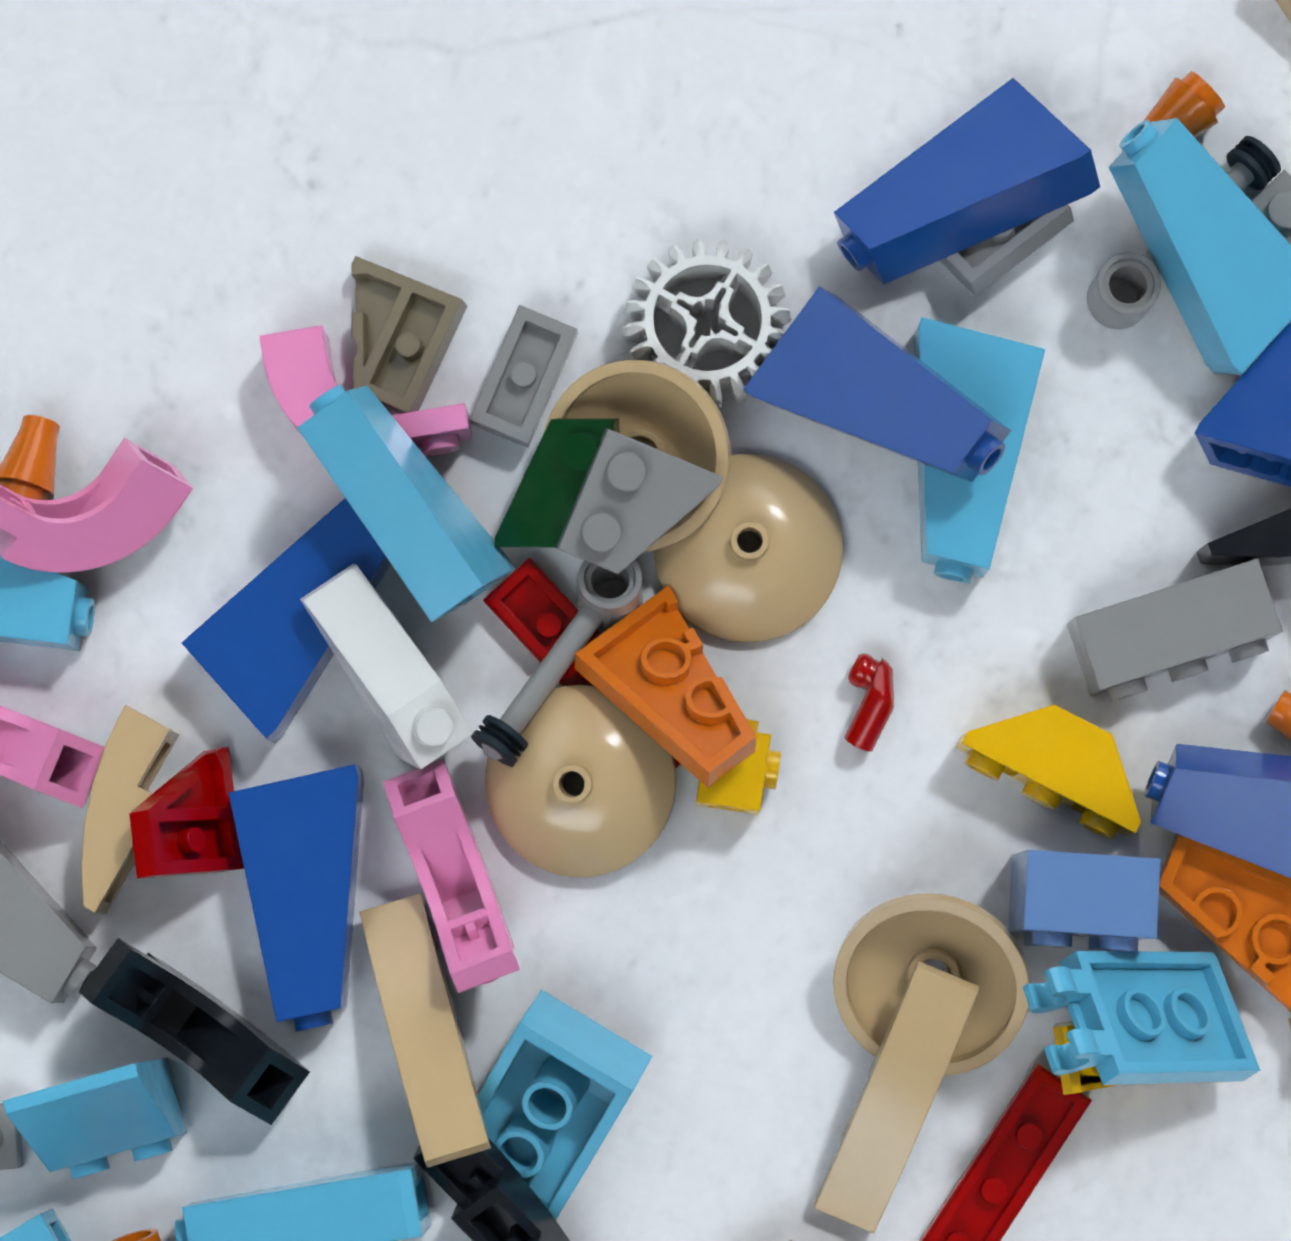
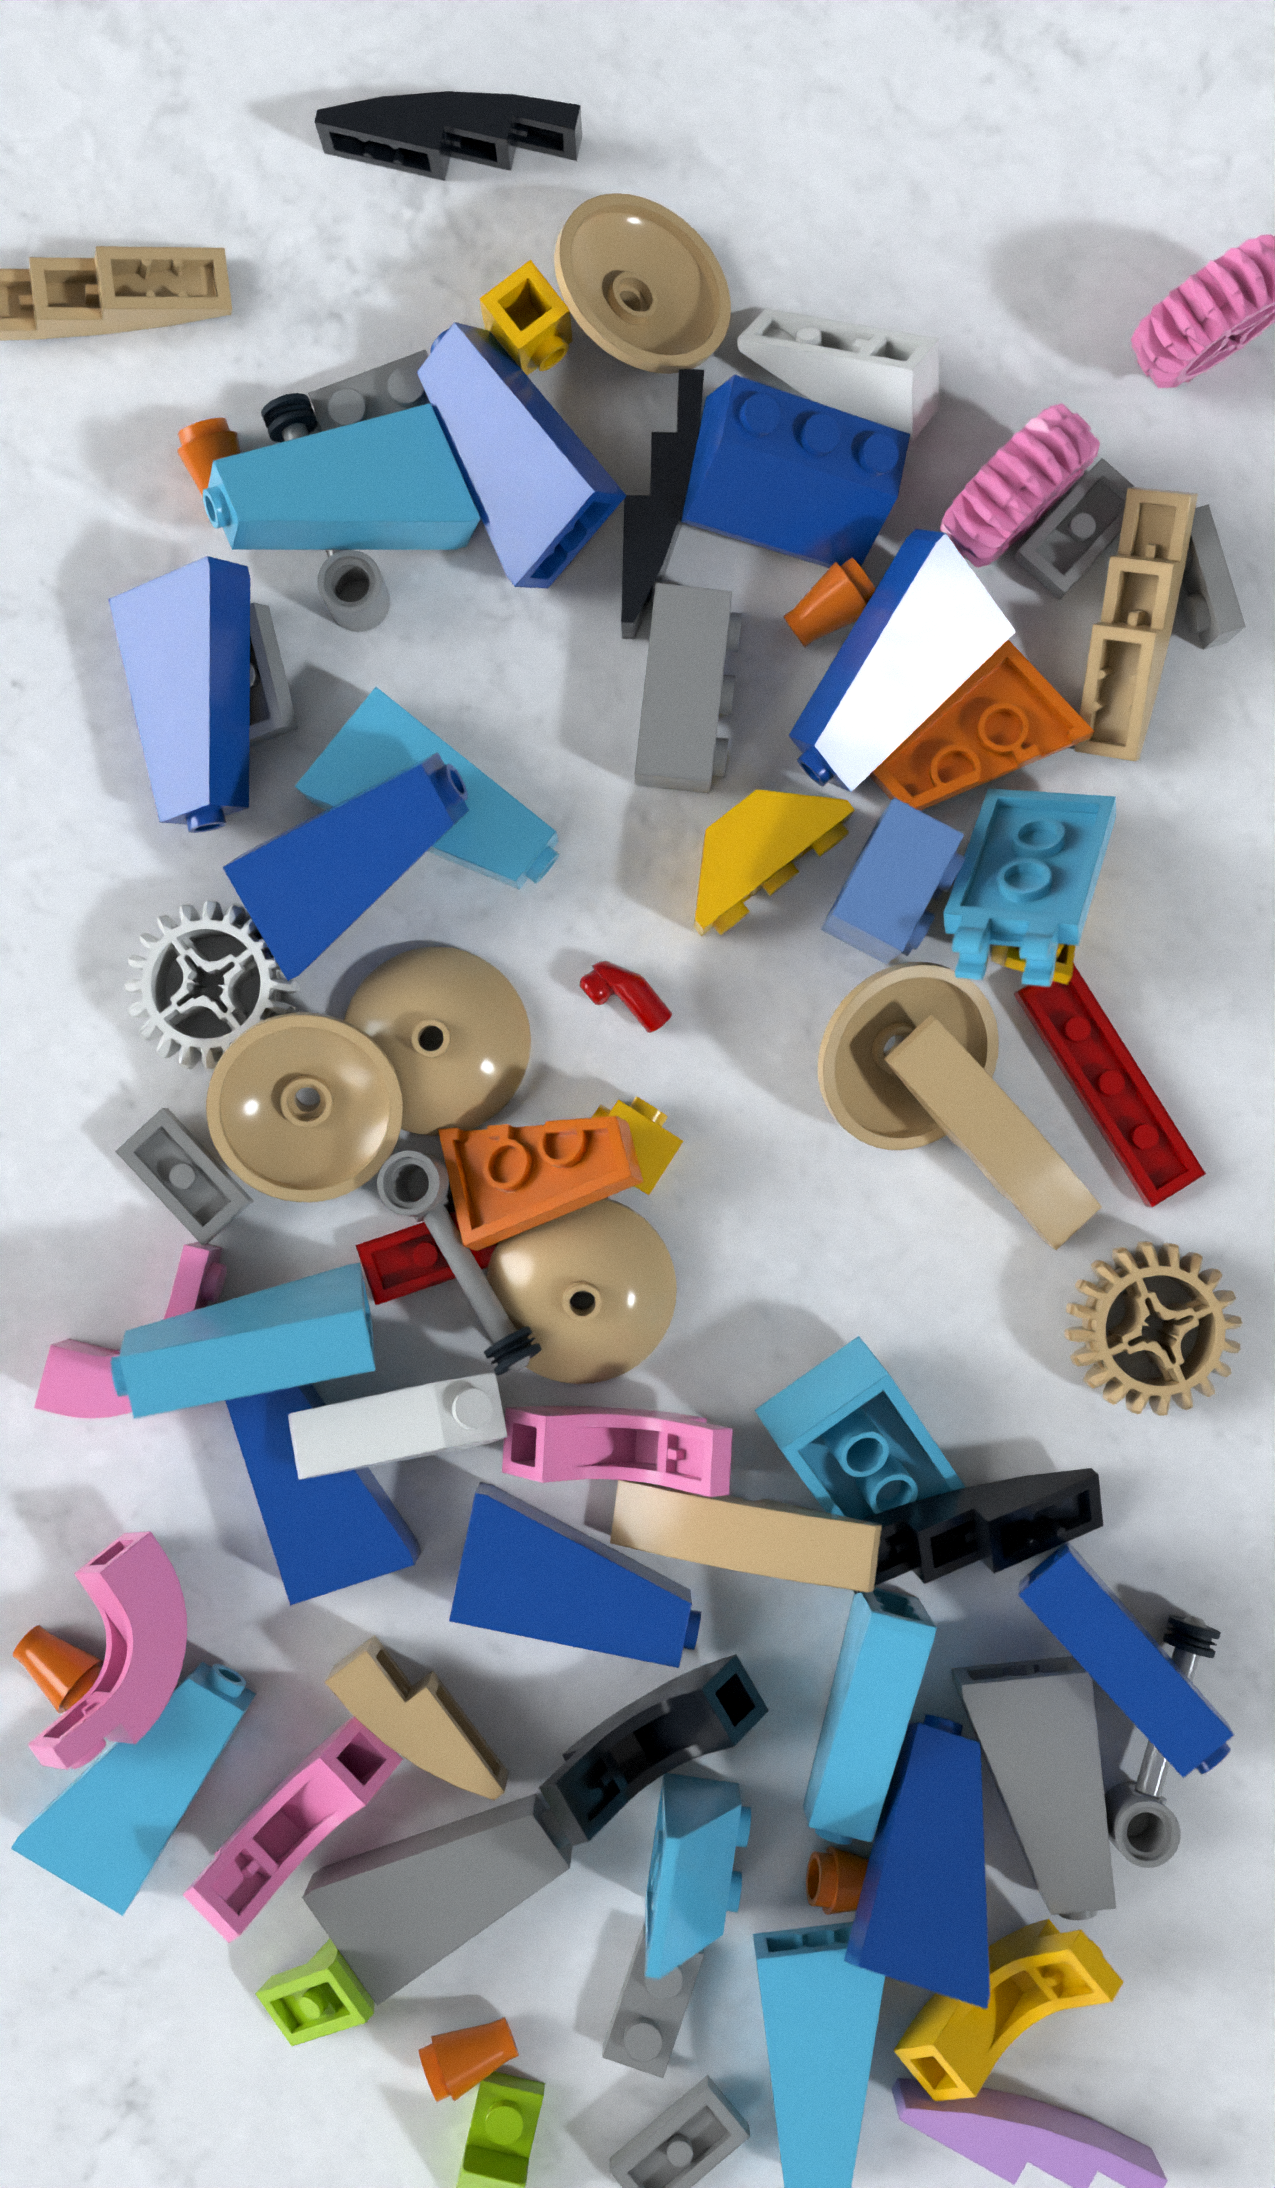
camera: 65 degrees left, 5 degrees up
(188, 822) = (458, 1670): red wing -> none
(400, 334) = (94, 1273): dark tan wing -> none
(552, 482) = (308, 1183): dark green wing -> none
(631, 501) = (345, 1132): light grey wing -> none

